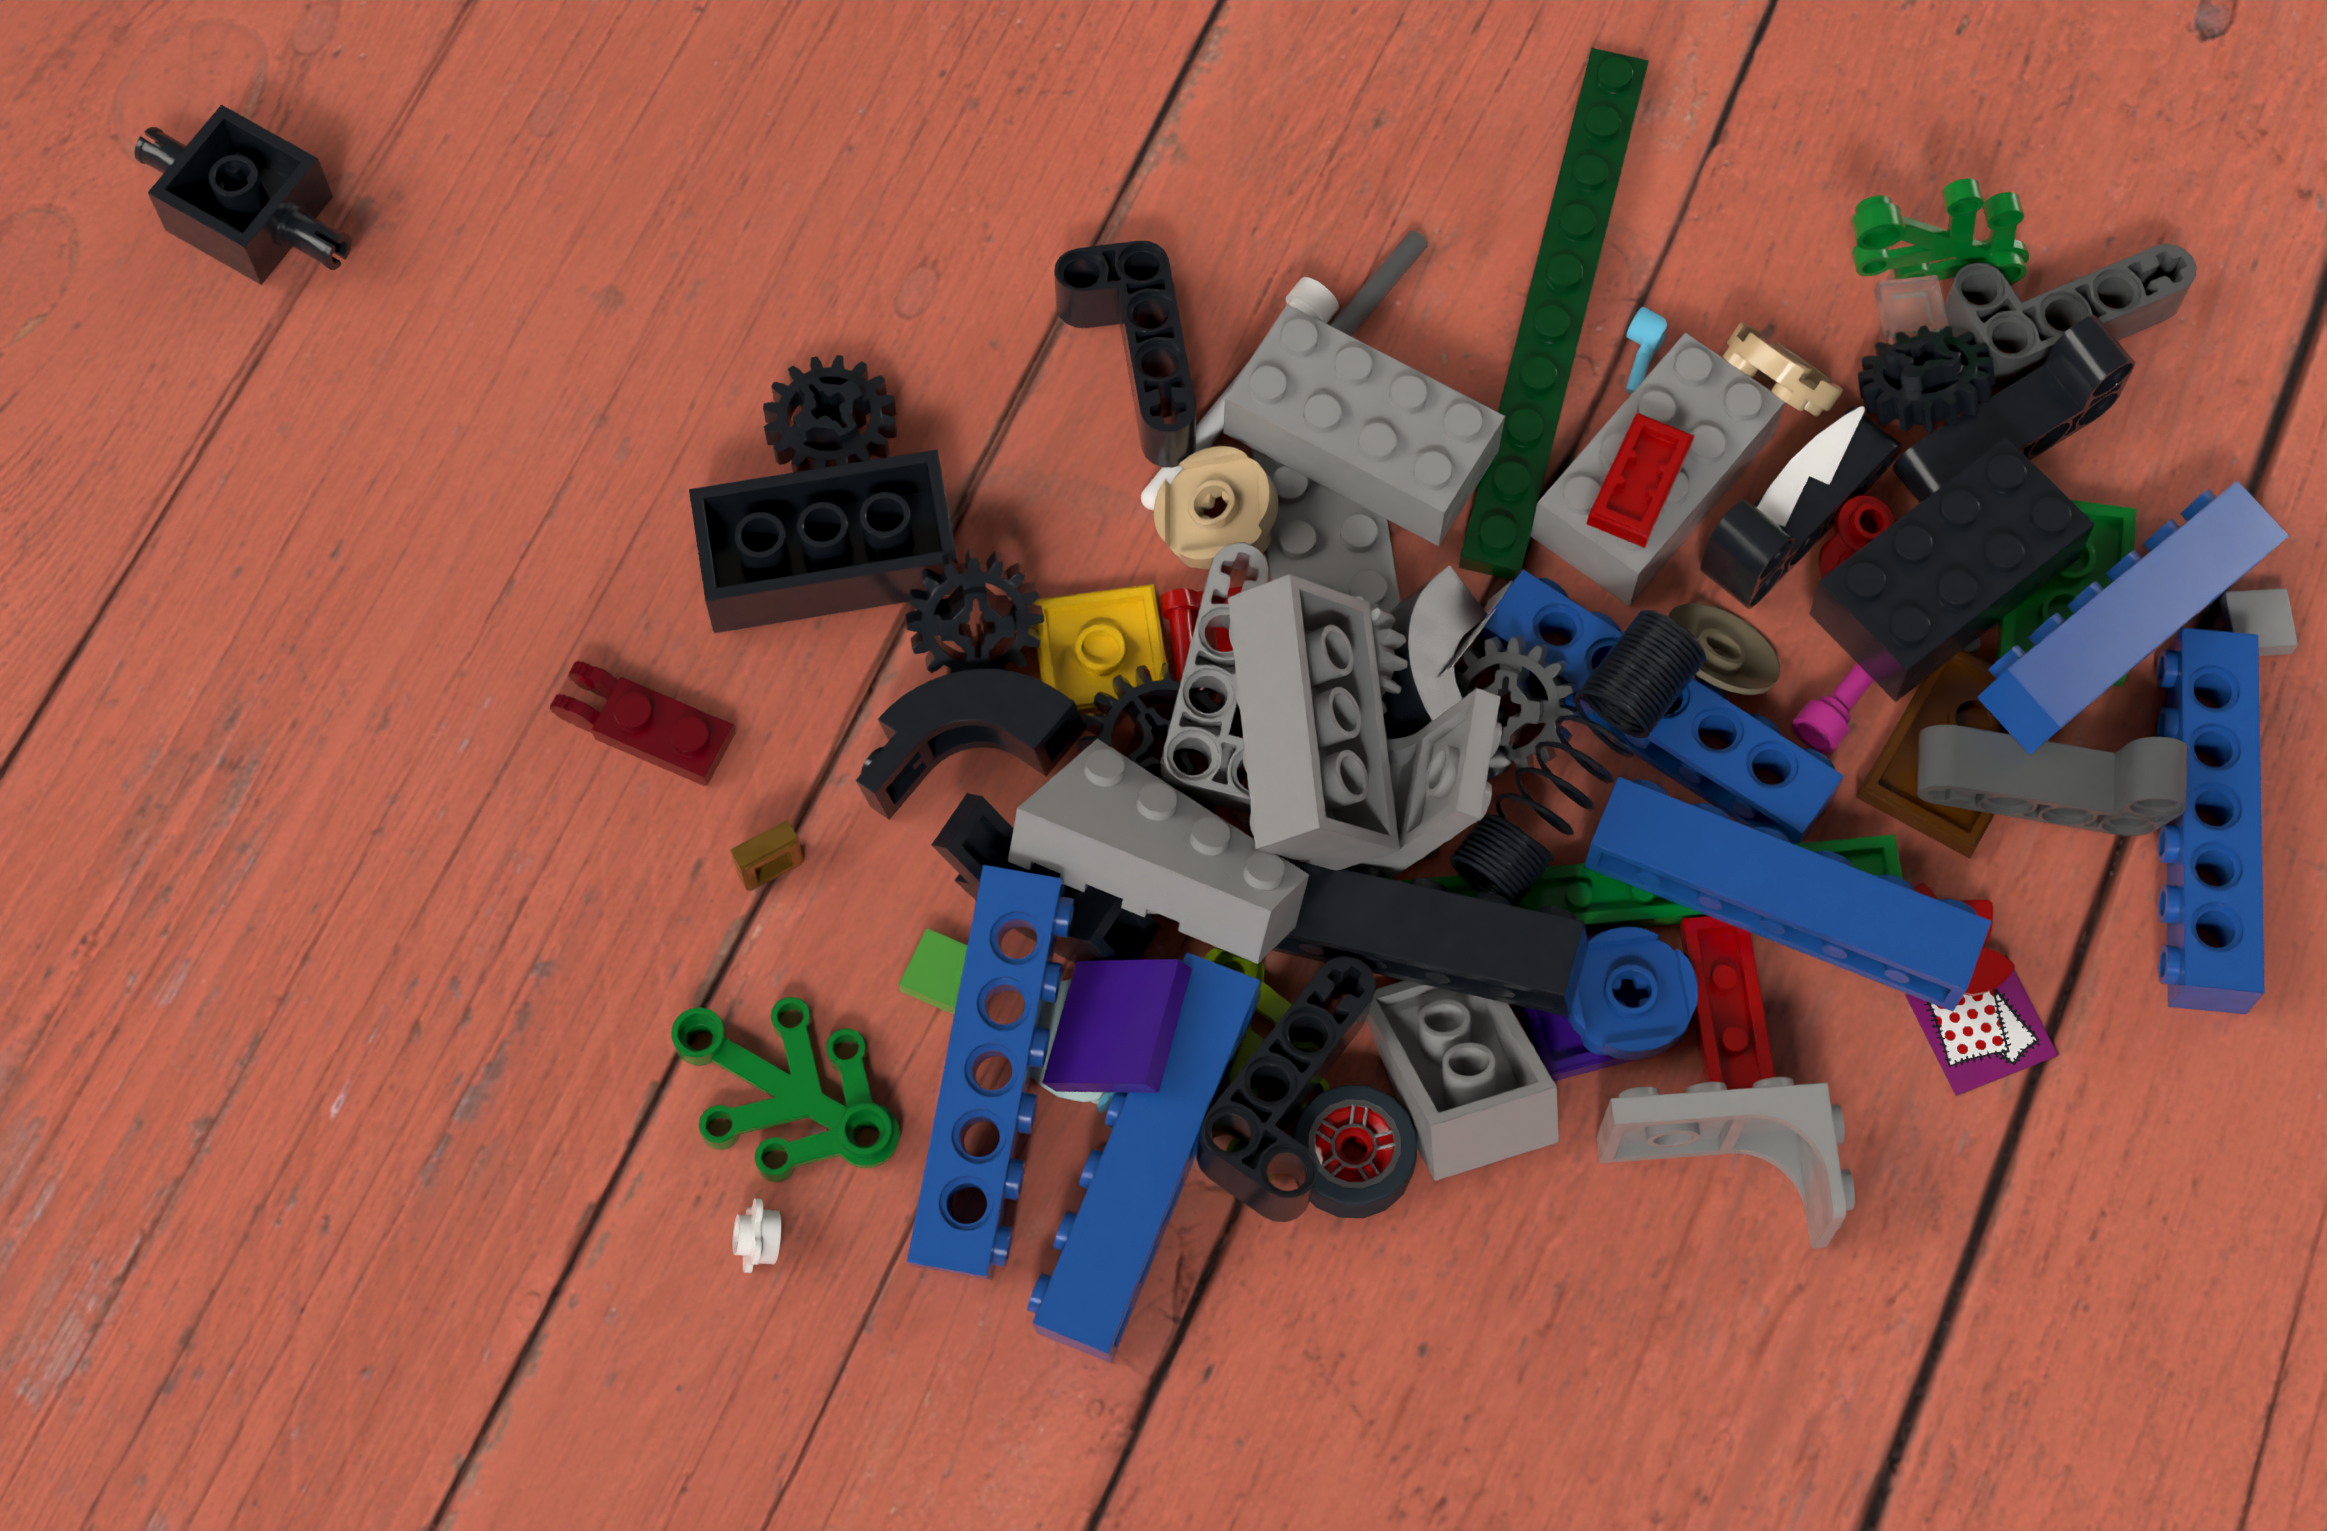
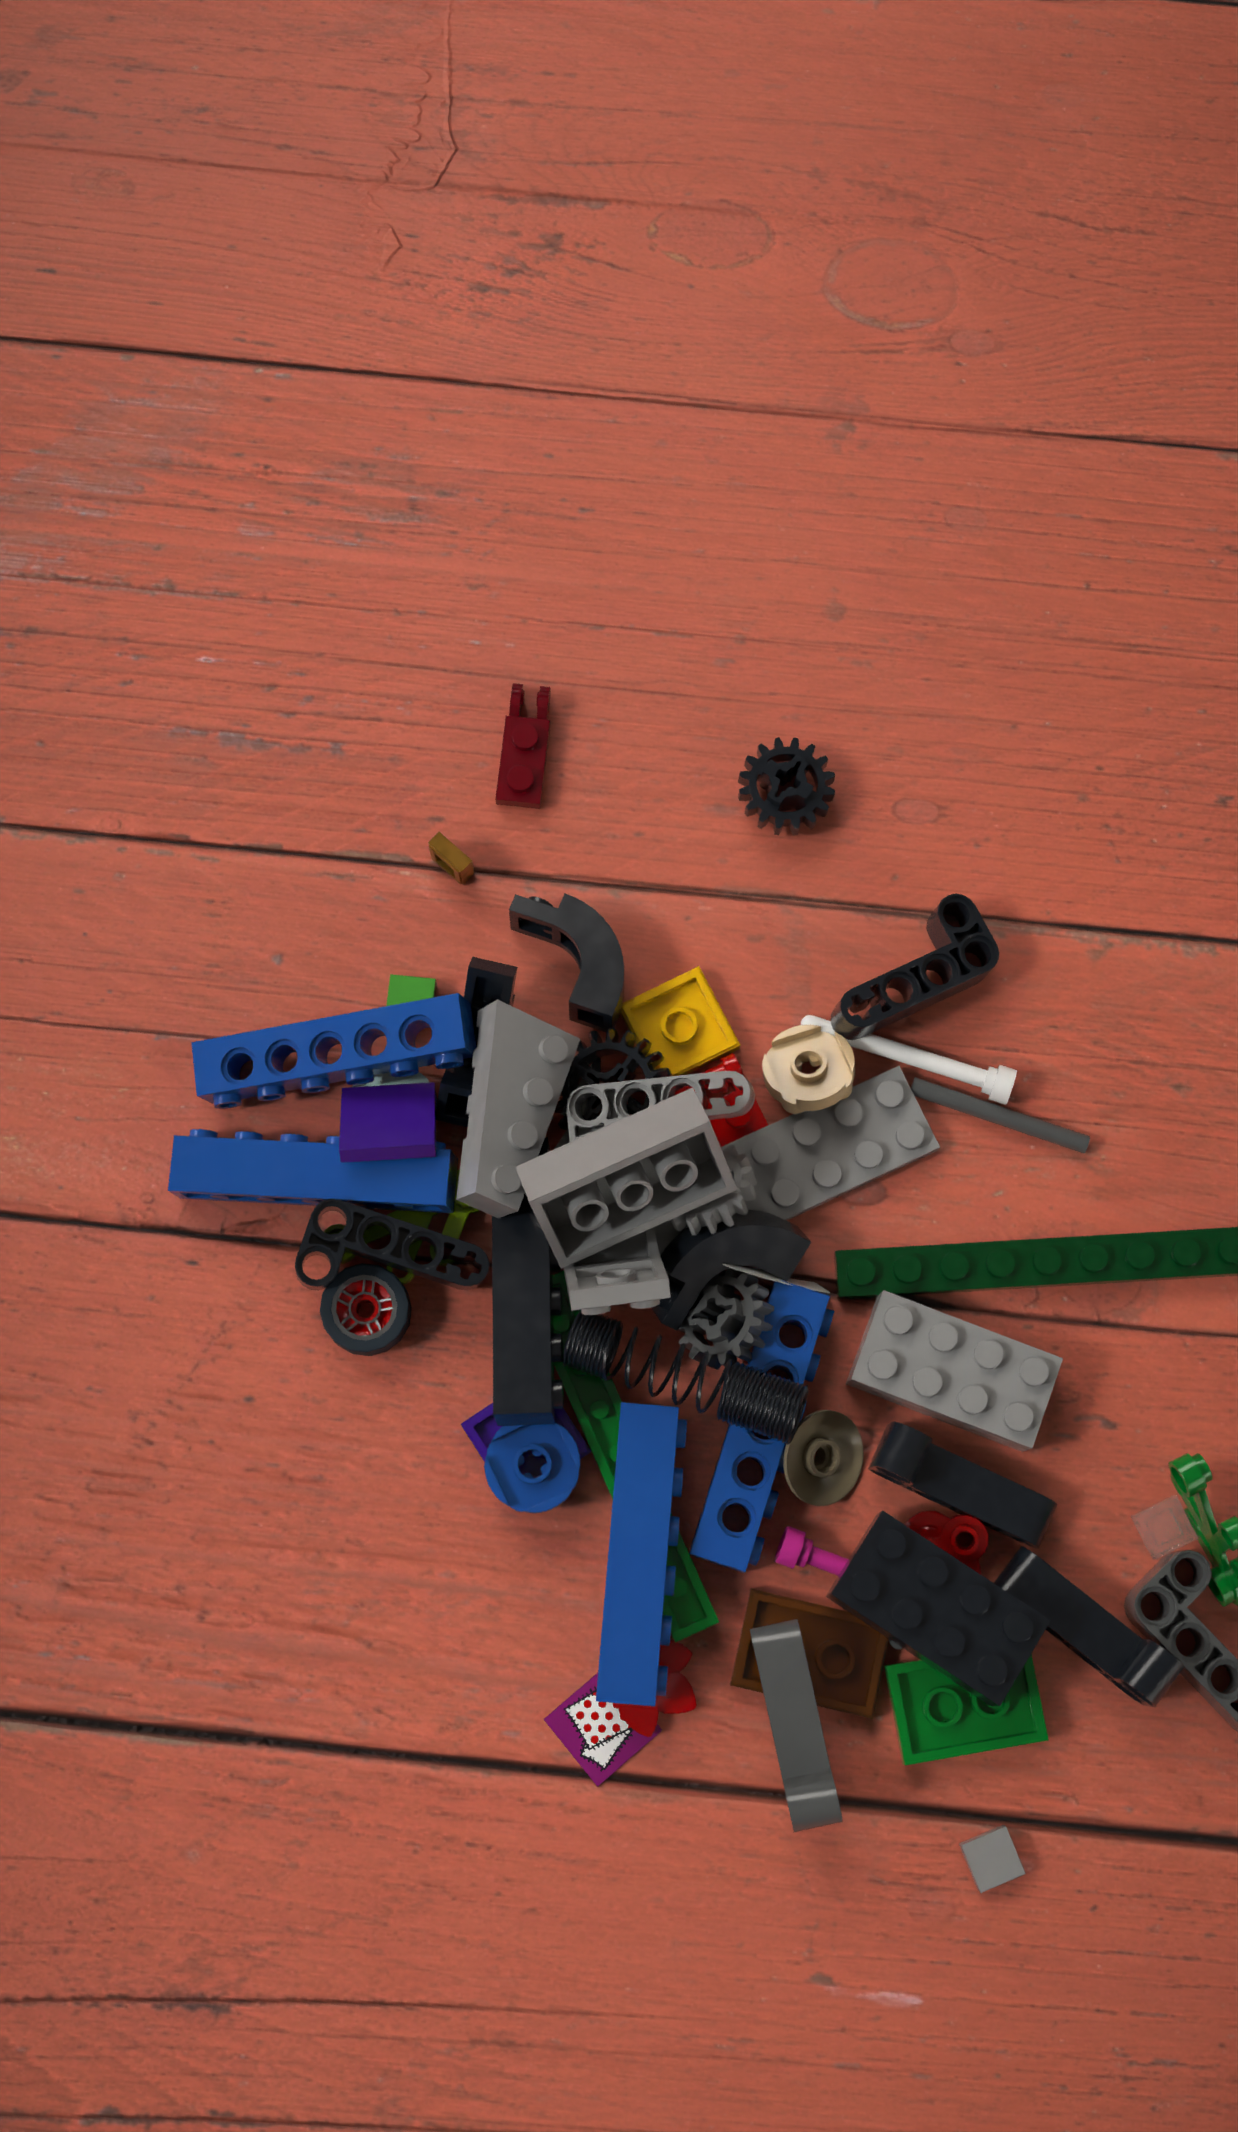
camera: 70 degrees right, 10 degrees up
(242, 195) = (812, 345): black brick -> none
(757, 1236) = (190, 944): white plate -> none
(793, 1095) = (296, 935): green plant -> none
(820, 540) = (688, 813): black brick -> none
(950, 616) = (662, 931): black gear -> none
(1362, 424) = (902, 1147): light grey brick -> none
(1463, 1076) = (437, 1365): light grey slope -> none
(1640, 480) = (917, 1357): red plate -> none
(1649, 332) = (1070, 1335): medium azure hand -> none
(1729, 1003) = (545, 1539): red plate -> none
(1772, 1121) = (466, 1585): light grey bracket -> none
(1796, 379) = (1063, 1441): tan plate -> none
(1817, 459) = (995, 1485): white sticker -> none
(1926, 378) = (1100, 1552): black gear -> none
(2131, 617) = (946, 1757): brick -> none
(2196, 974) = (936, 1844): blue brick -> none

